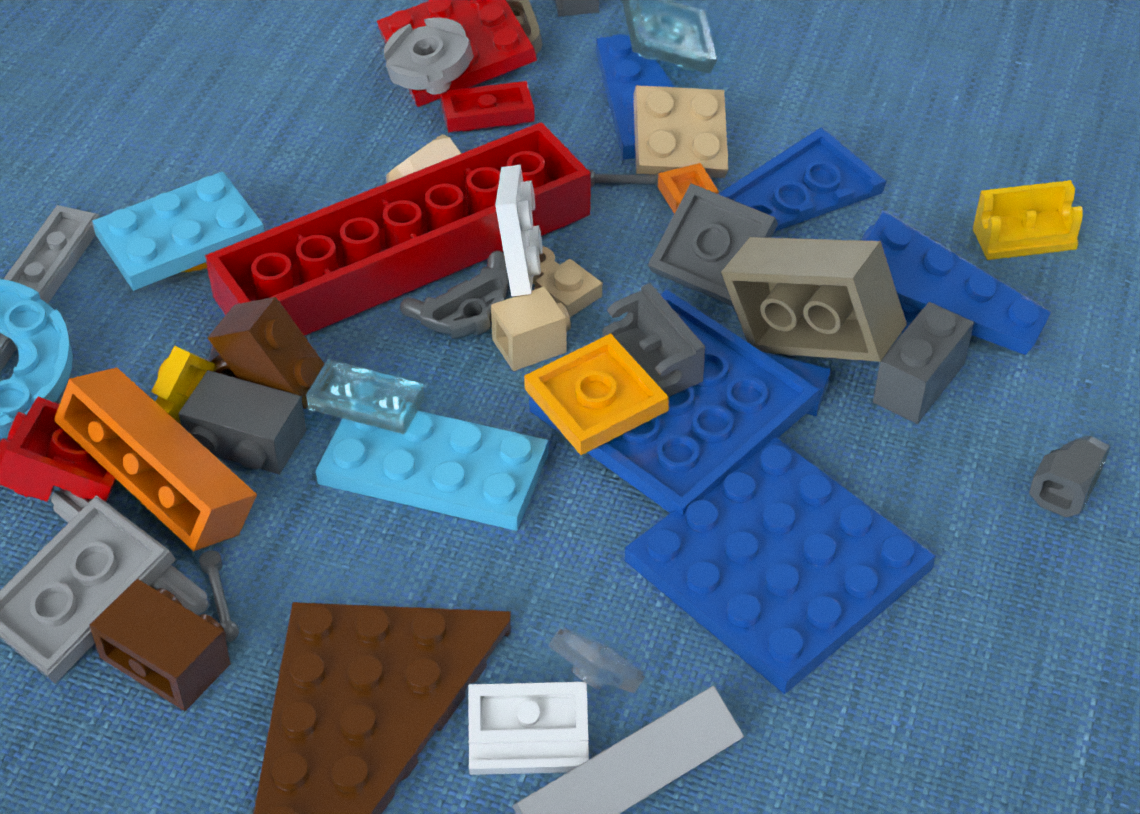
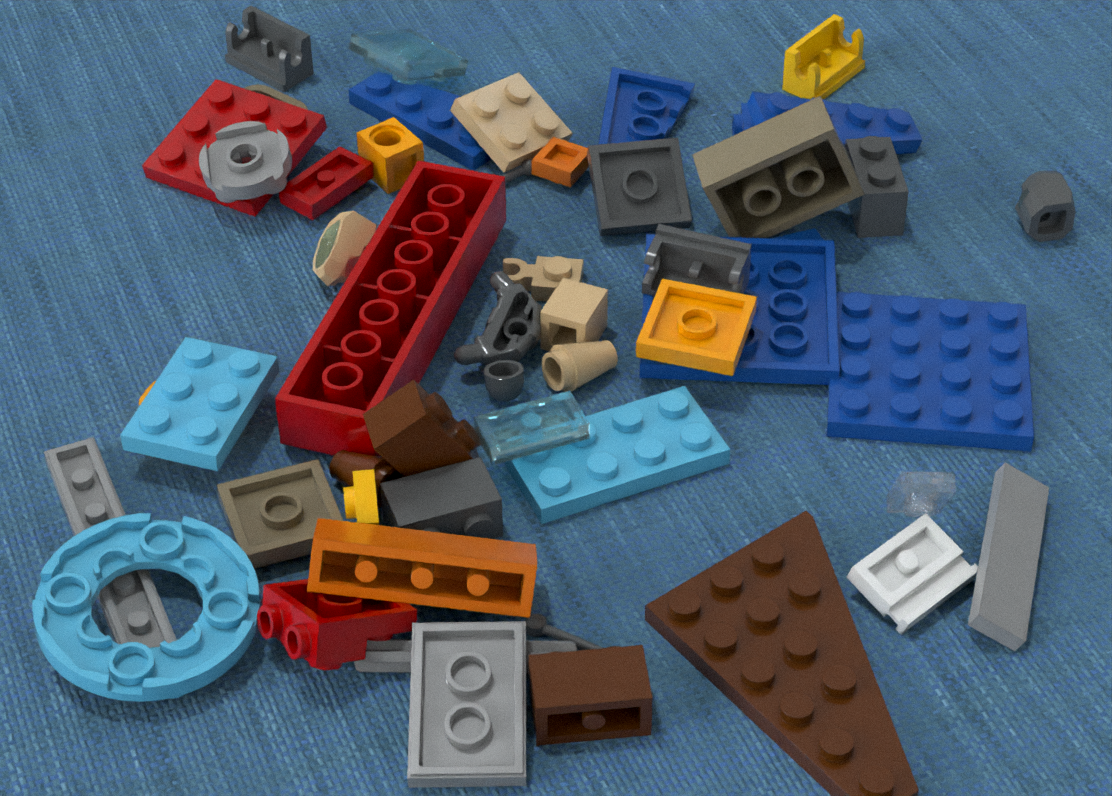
camera: 40 degrees left, 5 degrees down
(138, 343) = (277, 511): none -> dark tan plate
(418, 346) = (504, 379): none -> dark grey hinge
(490, 368) = (577, 363): none -> tan cone
(519, 237) = (512, 240): white plate -> none
(559, 106) = (392, 151): none -> light orange brick

